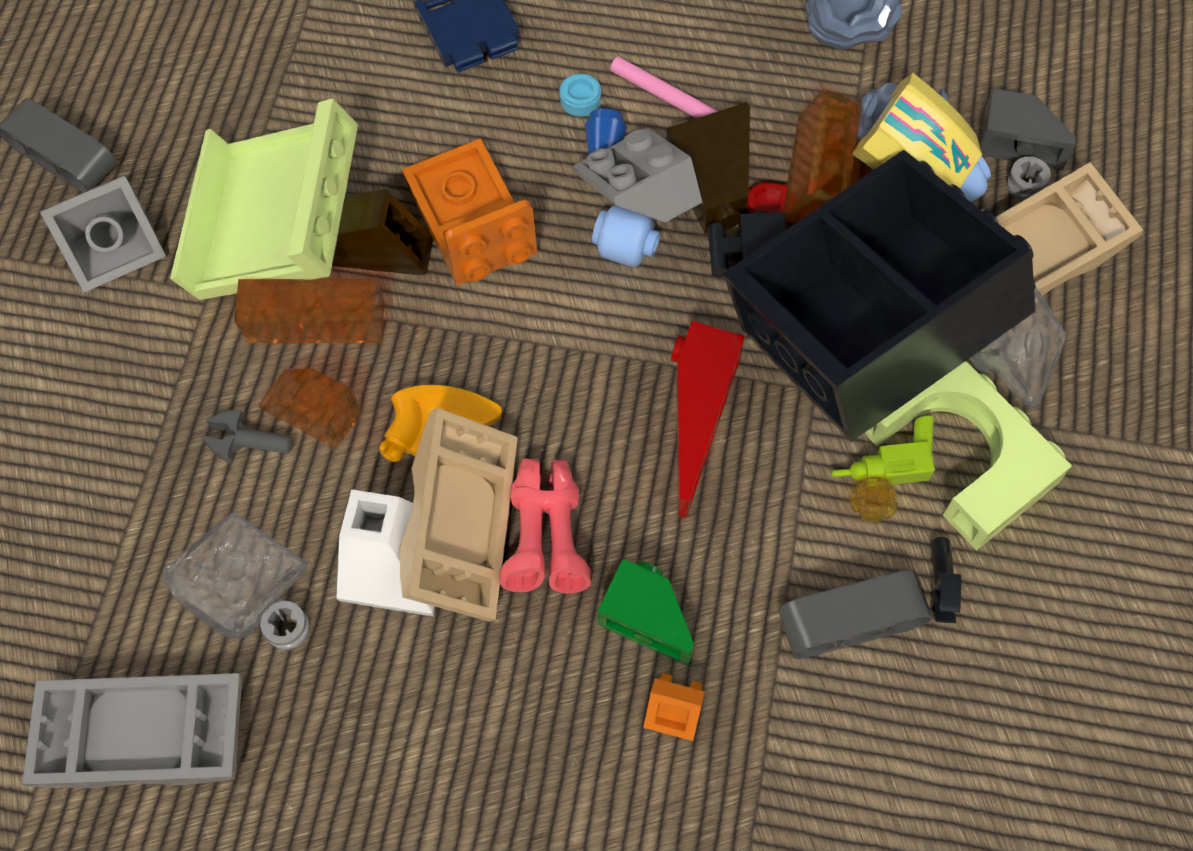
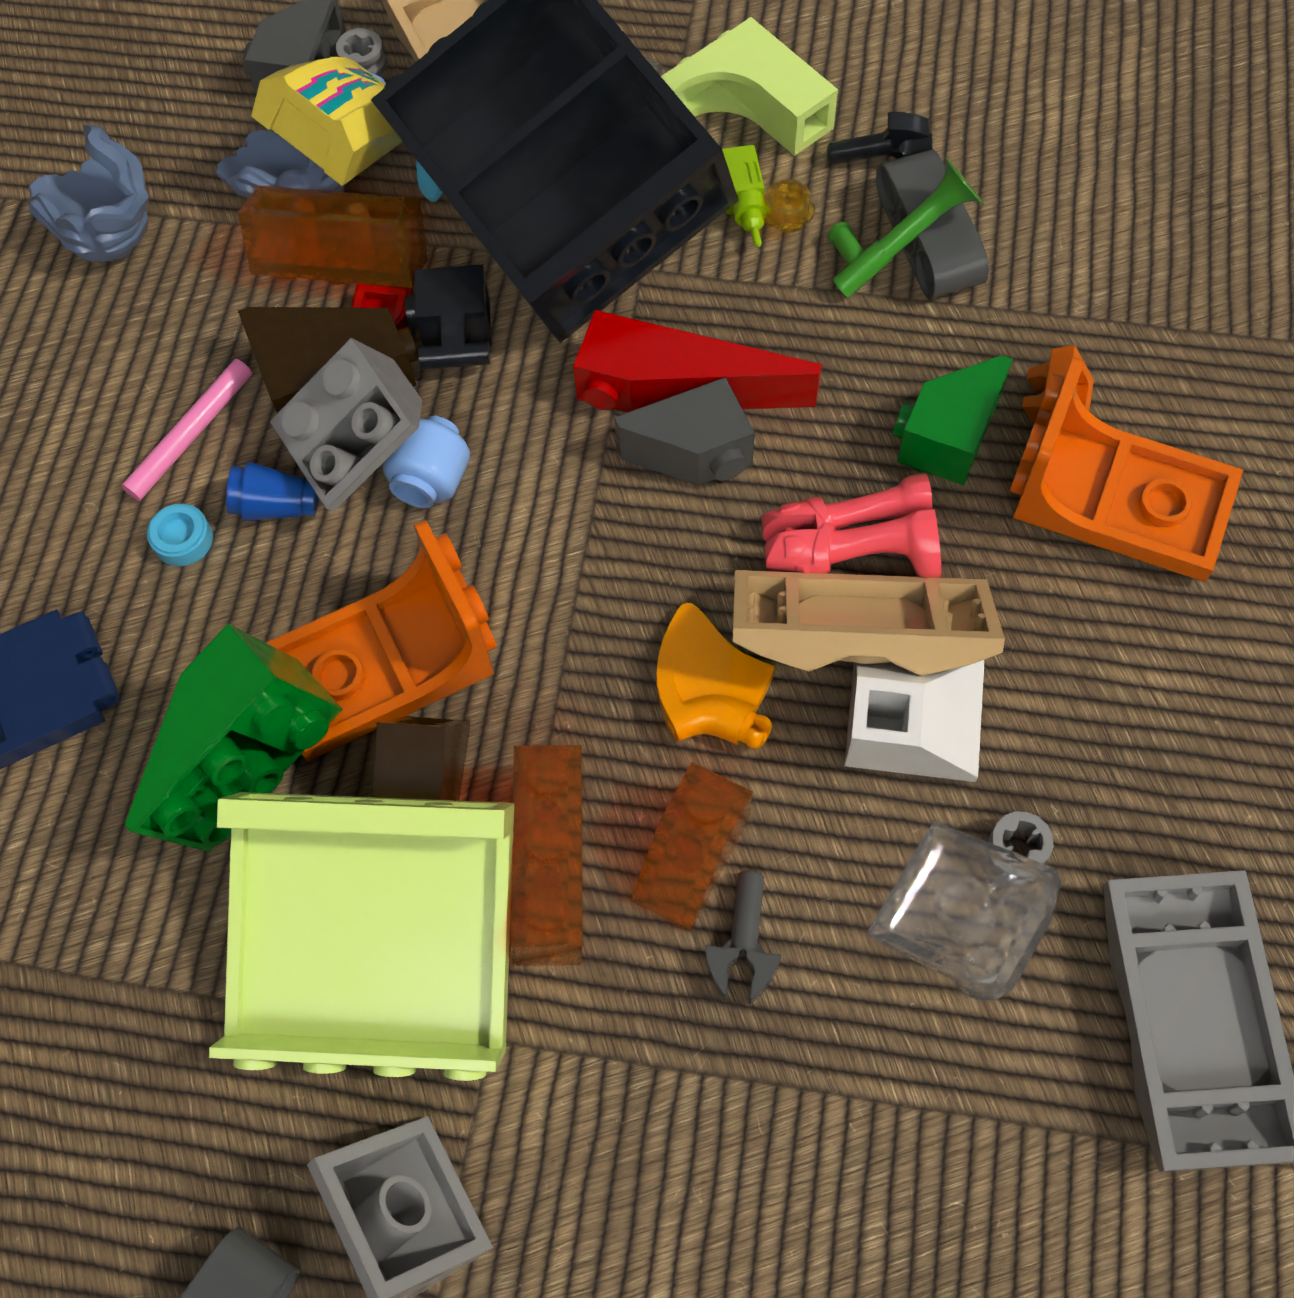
camera: 90 degrees left, 0 degrees up
(400, 117) = (228, 730): none -> green slope
(574, 737) = (1121, 487): none -> orange bracket
(639, 414) = (689, 435): none -> dark grey slope
(855, 612) = (865, 264): none -> bright green piece

